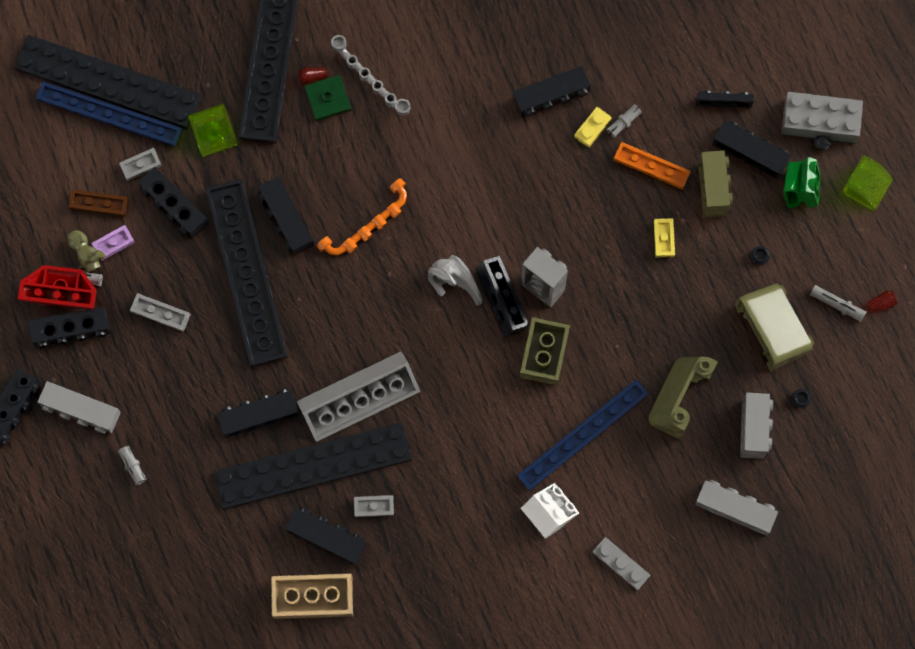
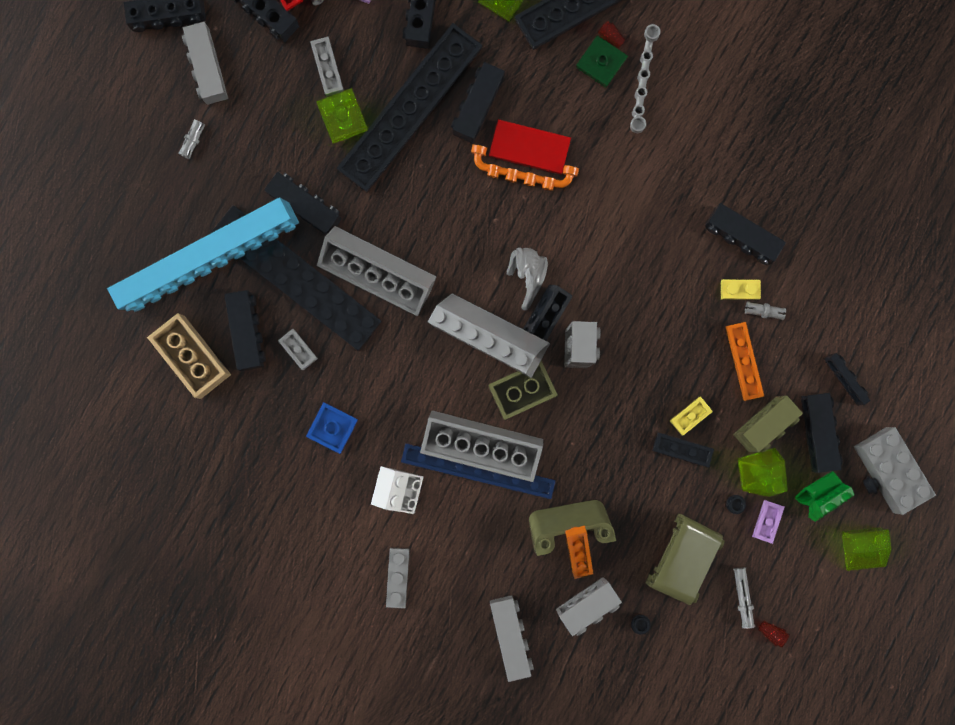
camera: 50 degrees right, 10 degrees up
(212, 329) = (342, 115): none -> clear neon green slope
(241, 519) = (204, 255): none -> medium azure brick
(352, 203) = (529, 147): none -> red tile
(459, 525) = (332, 428): none -> blue plate
(480, 343) = (489, 334): none -> light grey slope
(565, 415) = (482, 446): none -> light grey slope
(686, 263) = (683, 449): none -> black plate
(706, 398) = (579, 551): none -> orange plate
(750, 215) = (763, 473): none -> clear neon green slope
(791, 241) = (768, 521): none -> lavender plate

